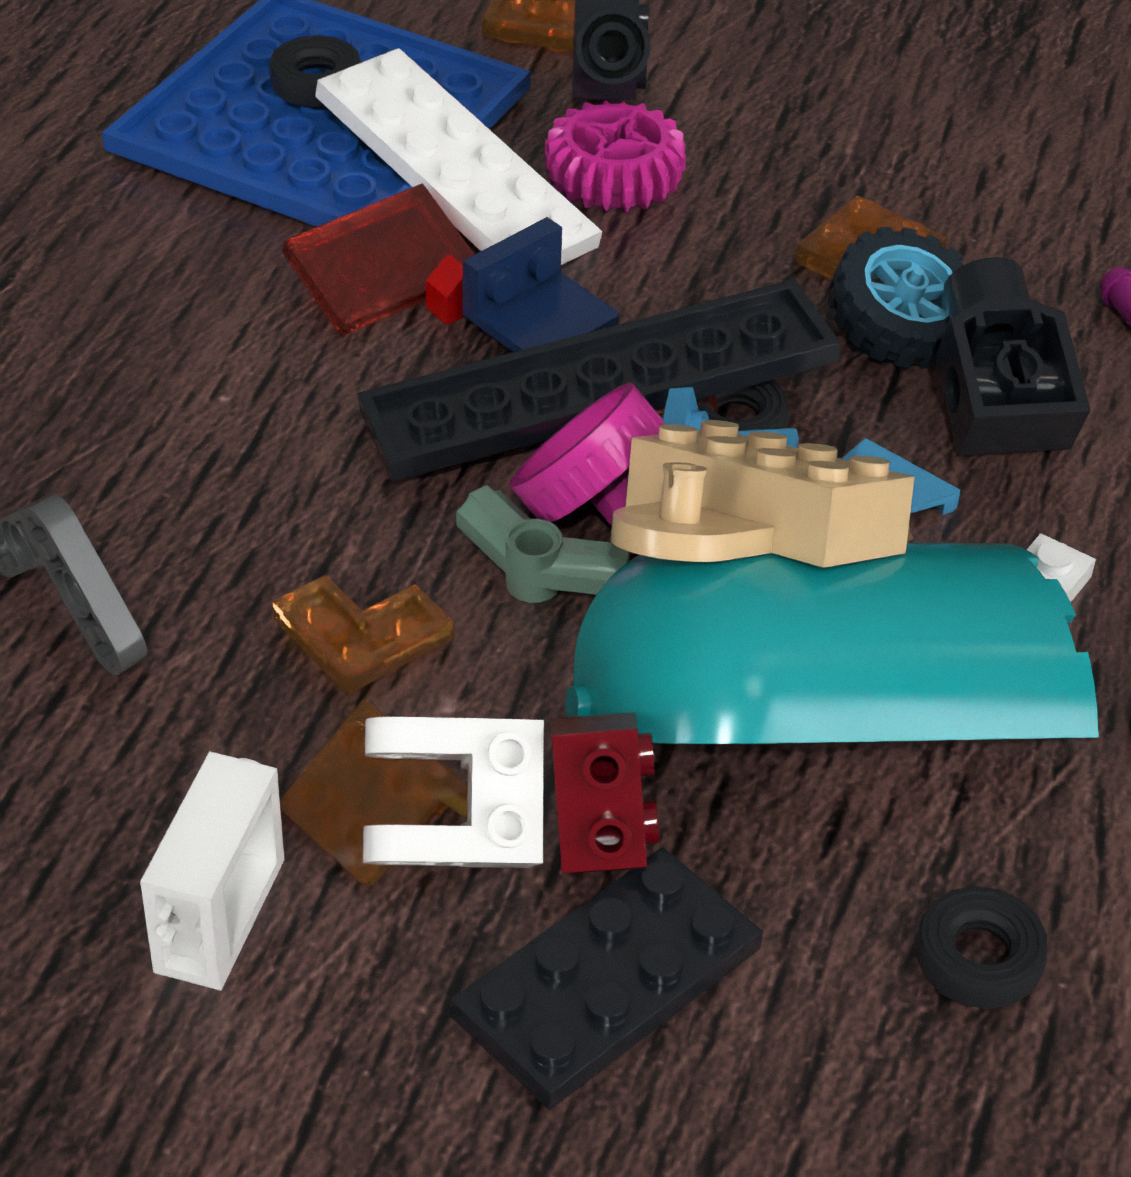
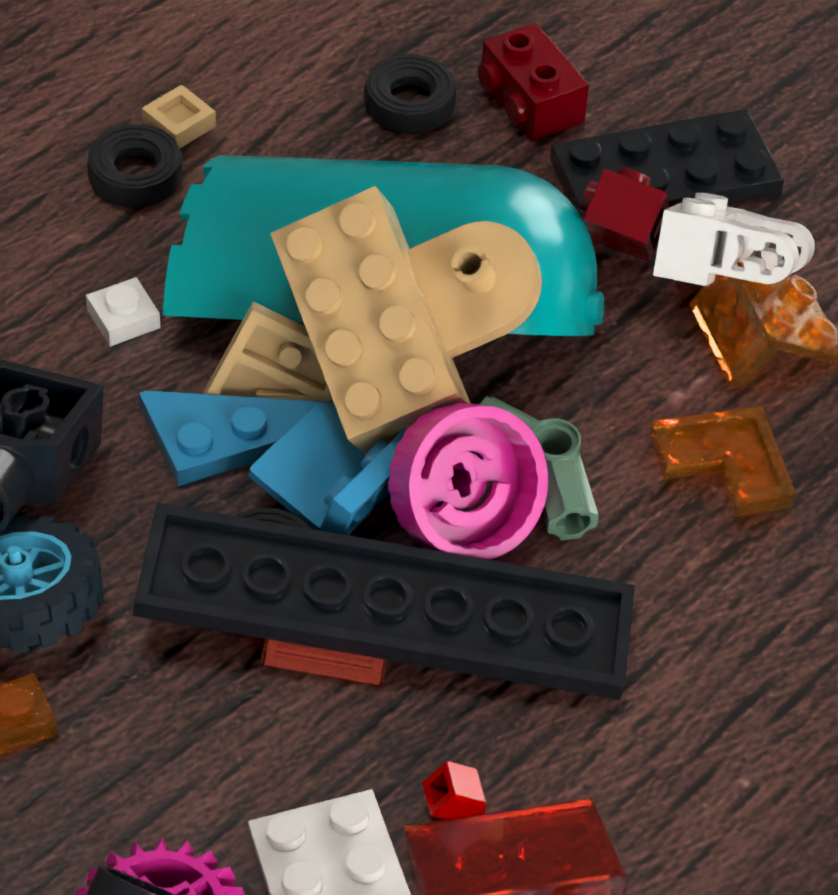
camera: 155 degrees left, 5 degrees up
(524, 297) = (380, 736): dark blue bracket -> none
(842, 1008) = (533, 82): none -> dark red brick

